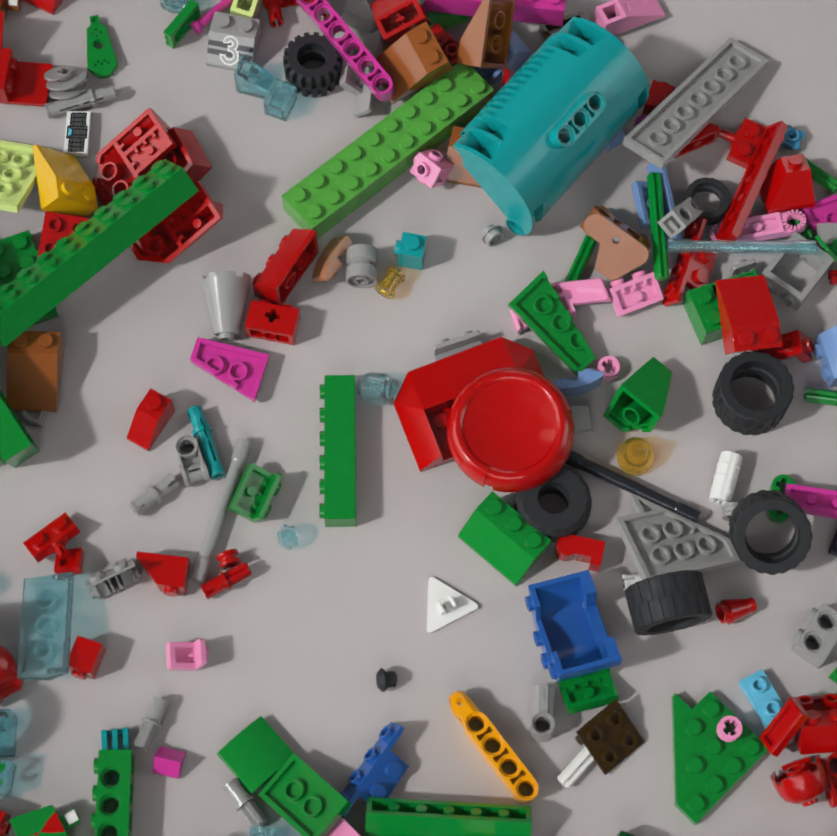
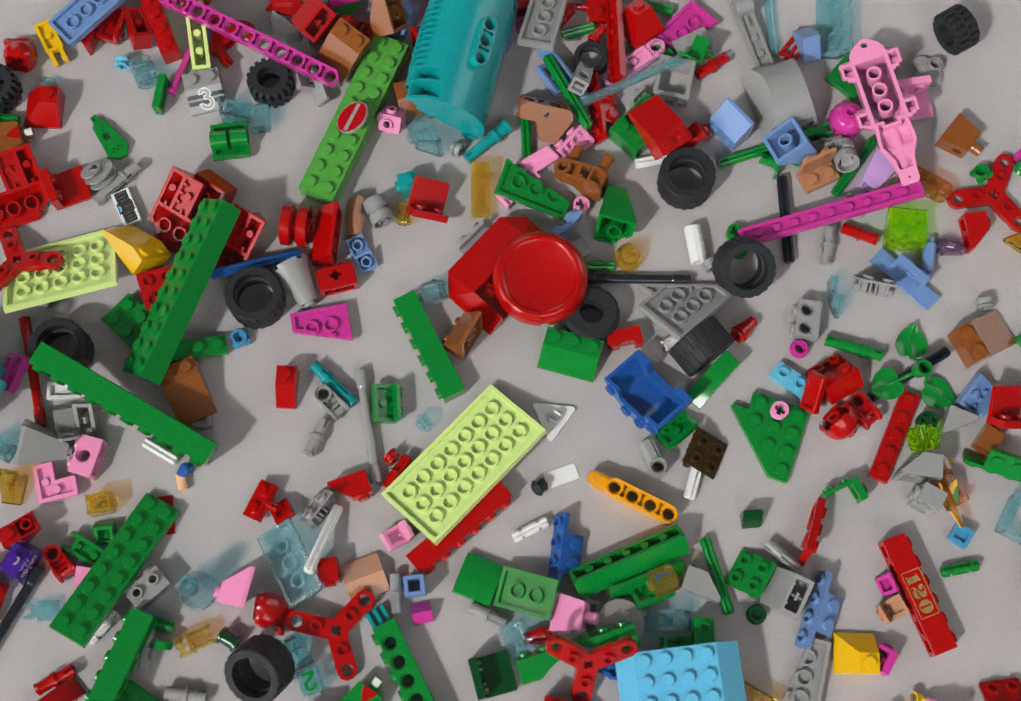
camera: 25 degrees left, 5 degrees up
(54, 751) = (339, 644): none -> red piece
(75, 329) = (201, 348): none -> green plate
(97, 616) = (323, 539): none -> white axle
(124, 687) = (365, 575): none -> nougat slope
(126, 332) = (234, 335): none -> dark azure plate
(164, 273) = (243, 279): none -> black tyre
(175, 725) = (414, 586): none -> medium blue brick
(183, 260) = (264, 261): none -> blue axle
(232, 110) = (229, 141): none -> green plate
(255, 238) = (295, 225): none -> red wheel
(265, 681) = (427, 554): none -> red brick
(308, 607) = (463, 464): none -> yellowish green plate
(317, 306) = (361, 253): none -> medium blue slope
(348, 725) = (530, 529): none -> white axle
(383, 143) = (352, 117): none -> red piece
(387, 456) = (464, 334): none -> dark orange slope
(420, 680) = (561, 475): none -> white sticker
(426, 277) = (428, 199): none -> red bracket
(459, 202) = (424, 135): none -> clear light blue slope
(495, 295) = (480, 189): none -> clear yellow slope
(543, 240) = (494, 136): none -> teal pin
(593, 449) = (600, 265): none -> green axle
(630, 346) = (589, 183): none -> dark orange piece
(664, 651) = (713, 379): none -> green slope
(708, 161) = (578, 30): none -> green axle
(714, 352) = (647, 161): none -> white axle
(730, 175) = (598, 33): none -> red pin
(796, 659) = (799, 343): none -> dark pink plate

